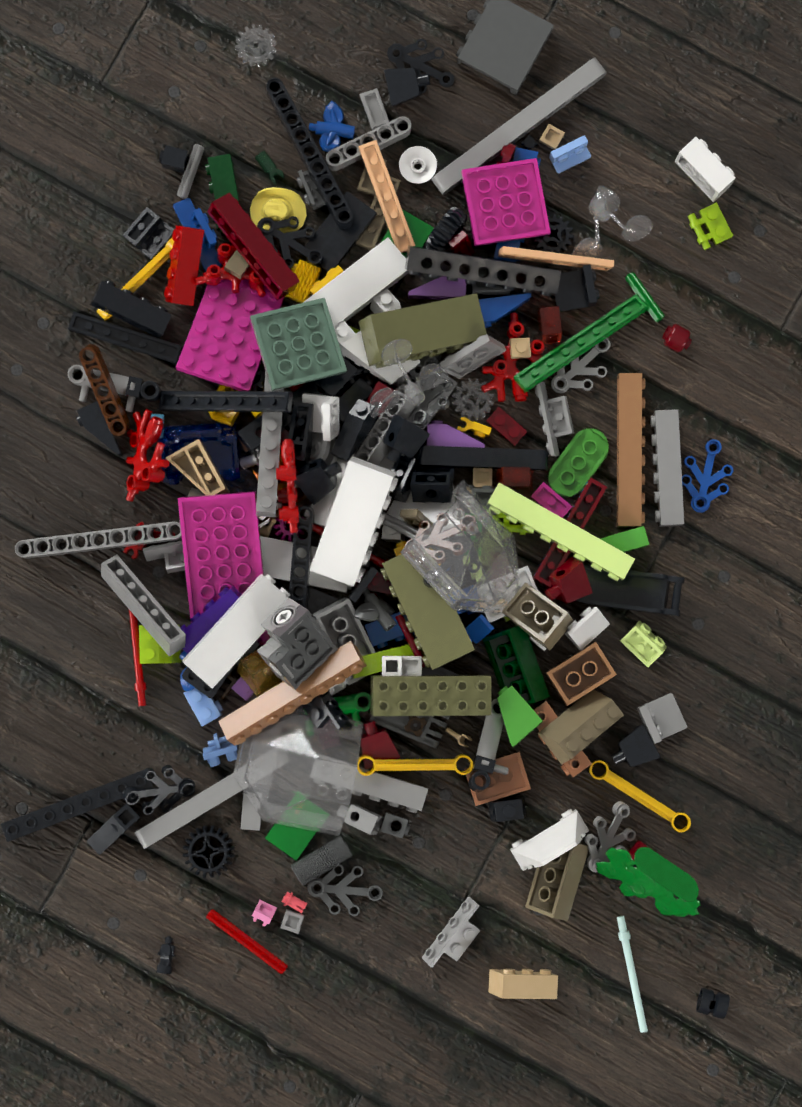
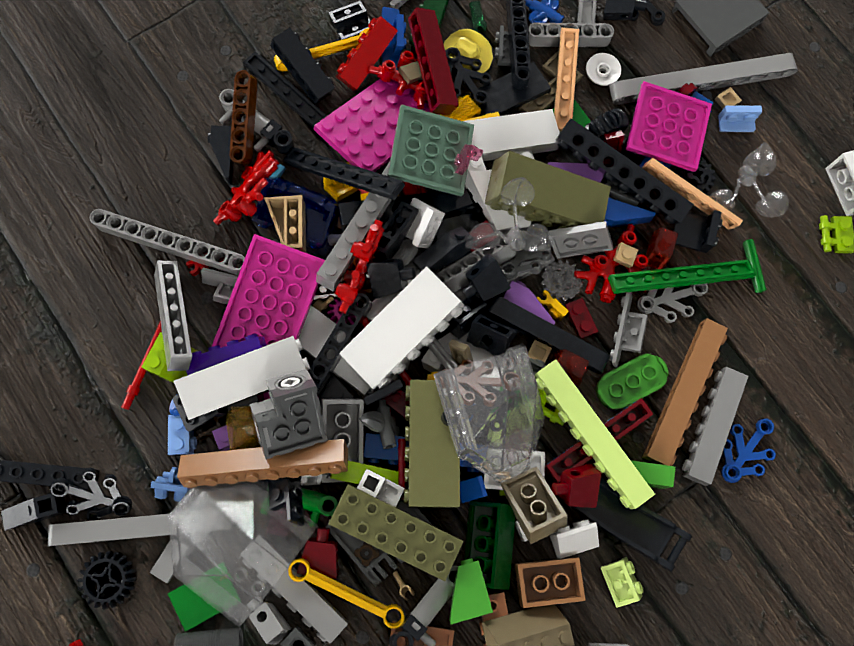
camera: 15 degrees right, 10 degrees down
(331, 341) = (468, 153): none -> clear pink bracket
(551, 500) = (594, 400): dark pink plate -> none
(677, 338) = (771, 313): dark red head -> none

